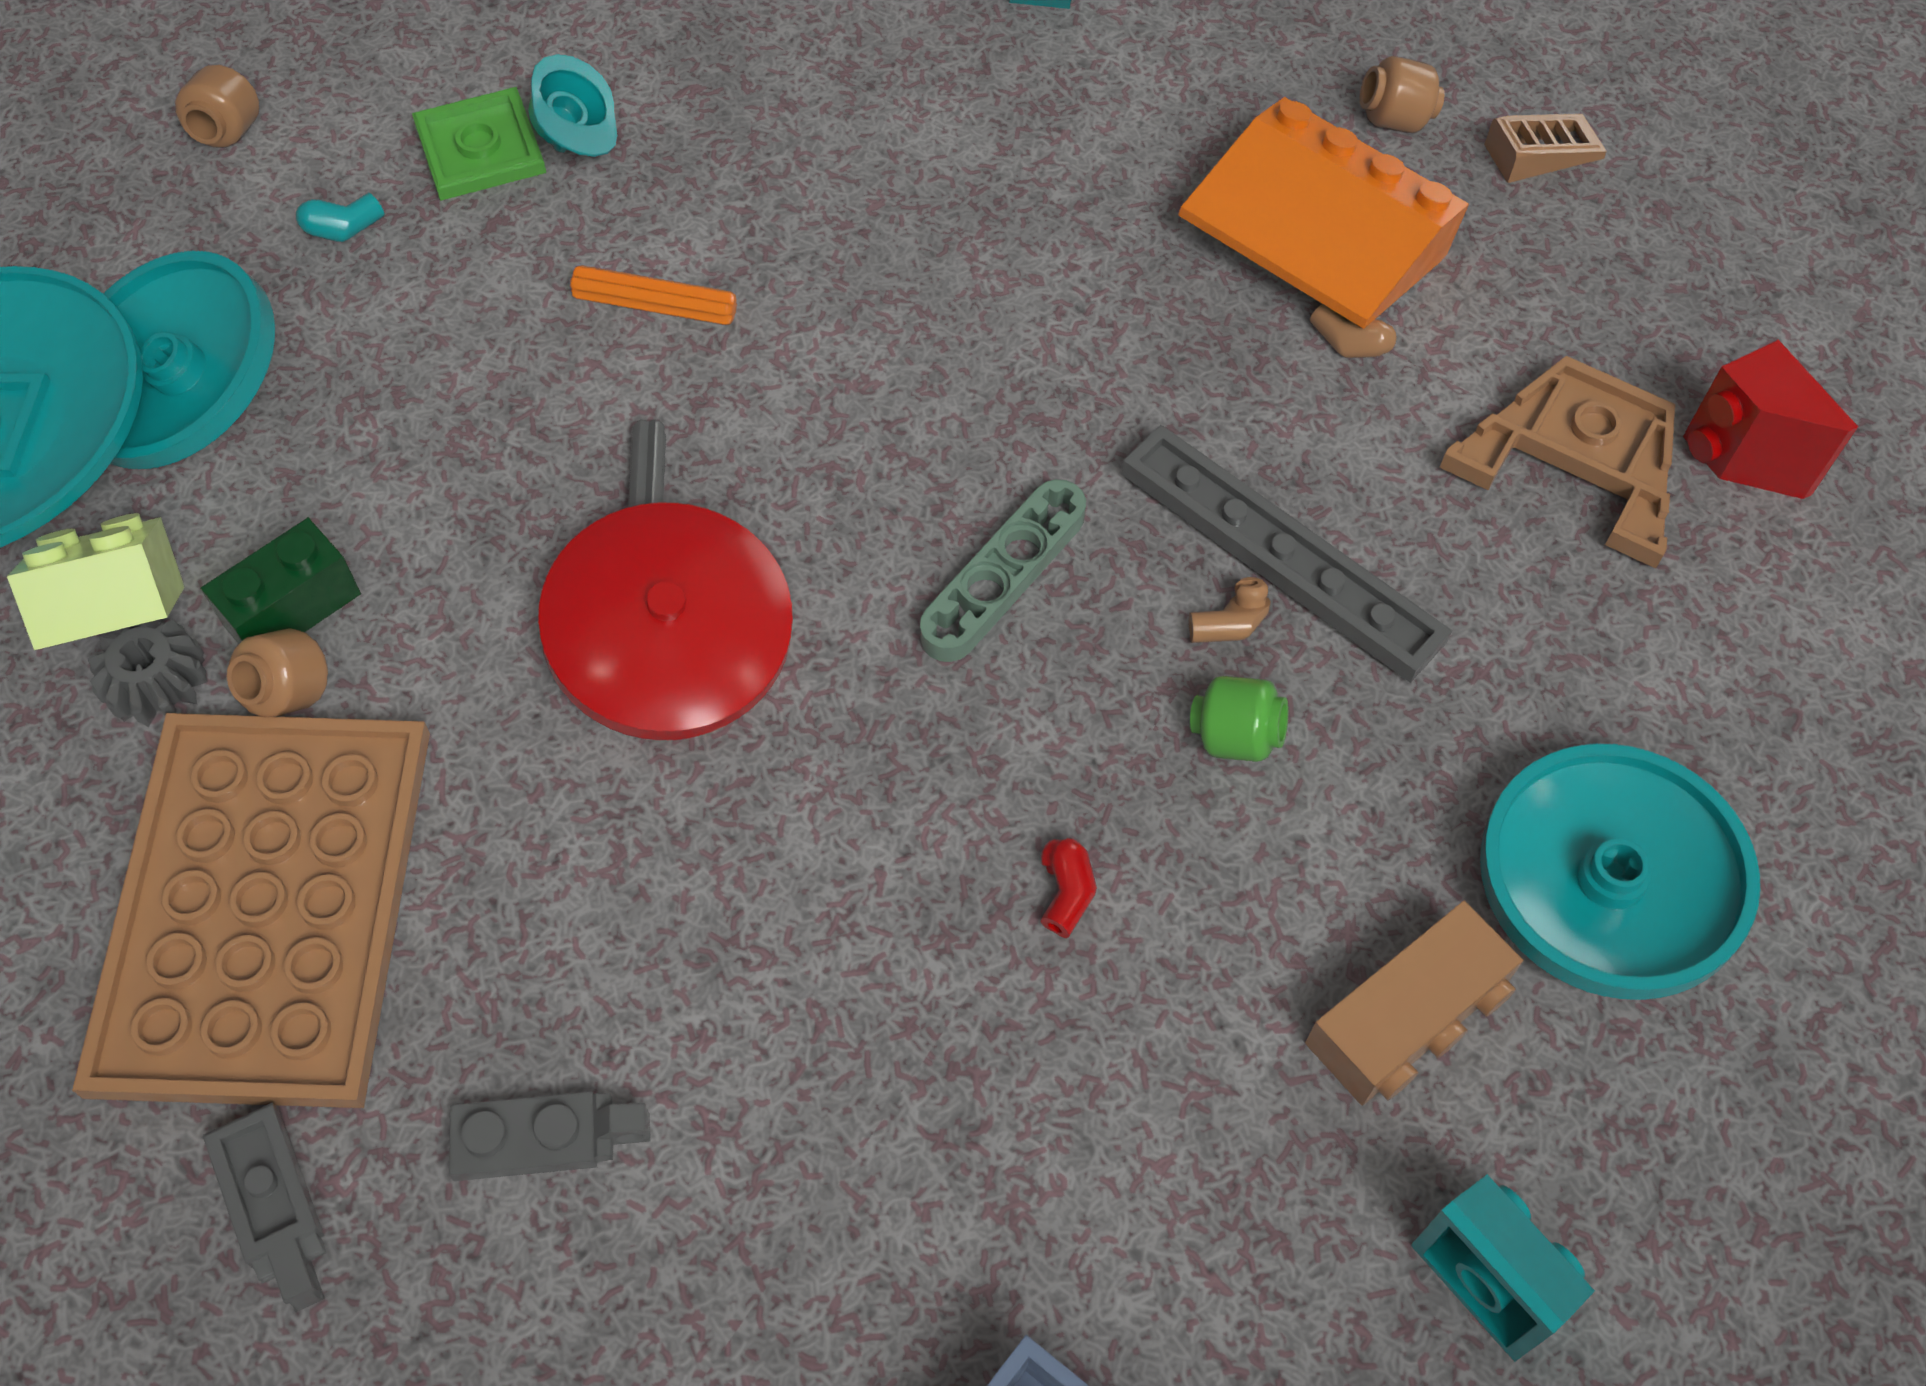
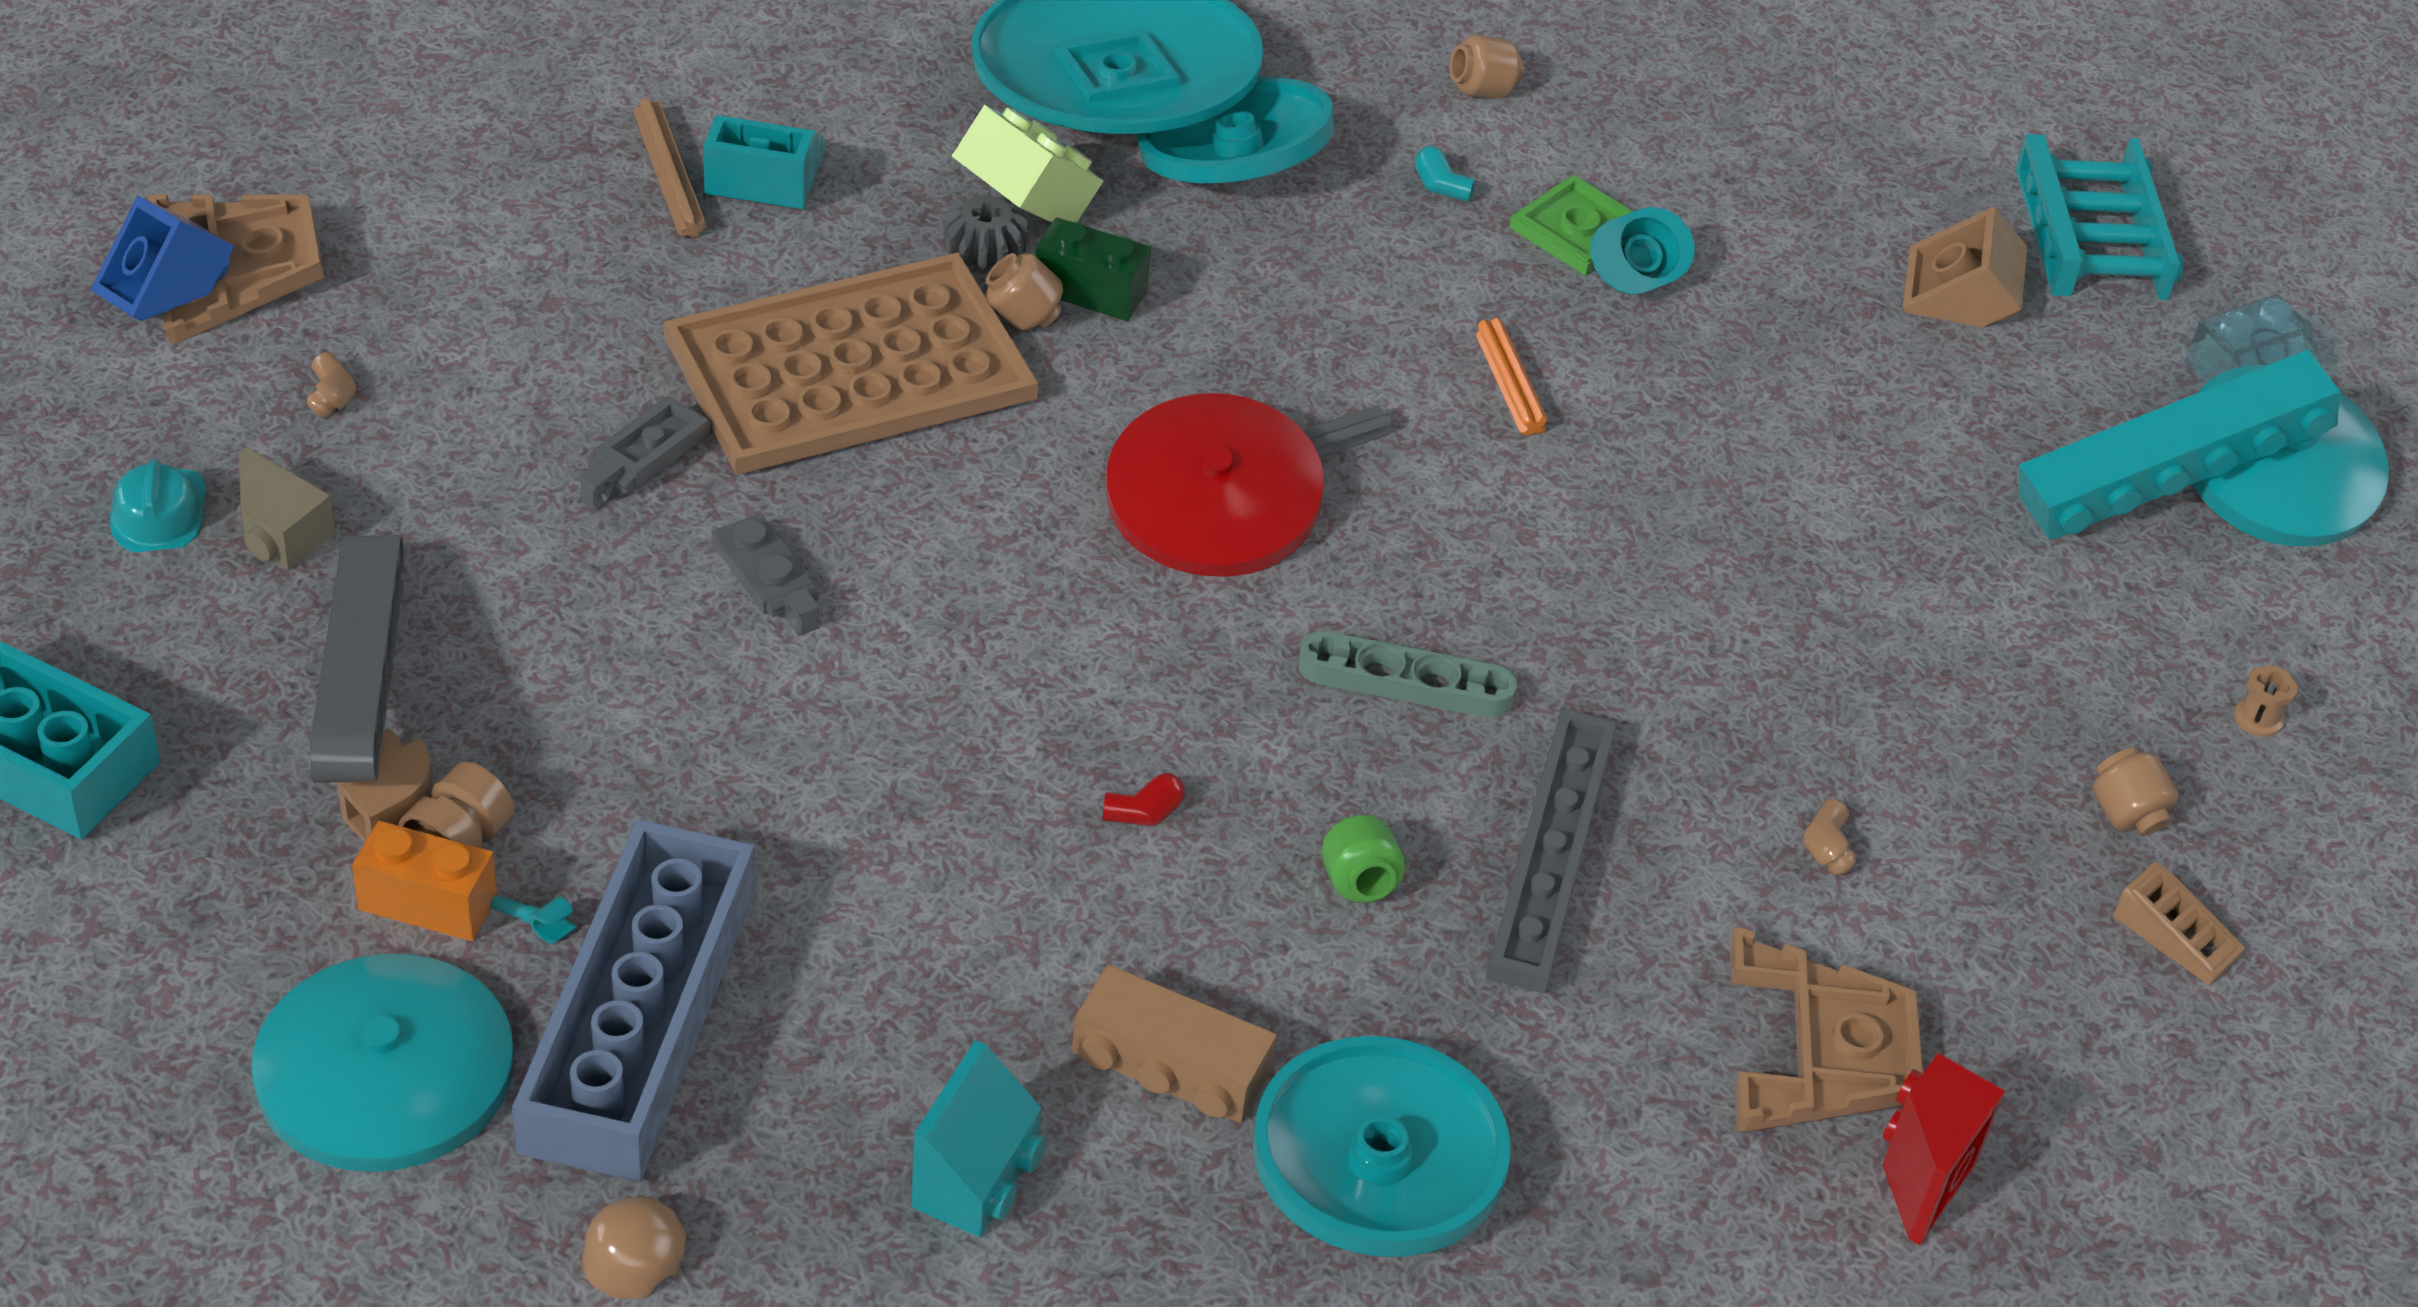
camera: 60 degrees right, 15 degrees down
(1237, 619) = (1465, 841): medium nougat arm -> none
(1326, 211) = (1932, 766): orange slope -> none

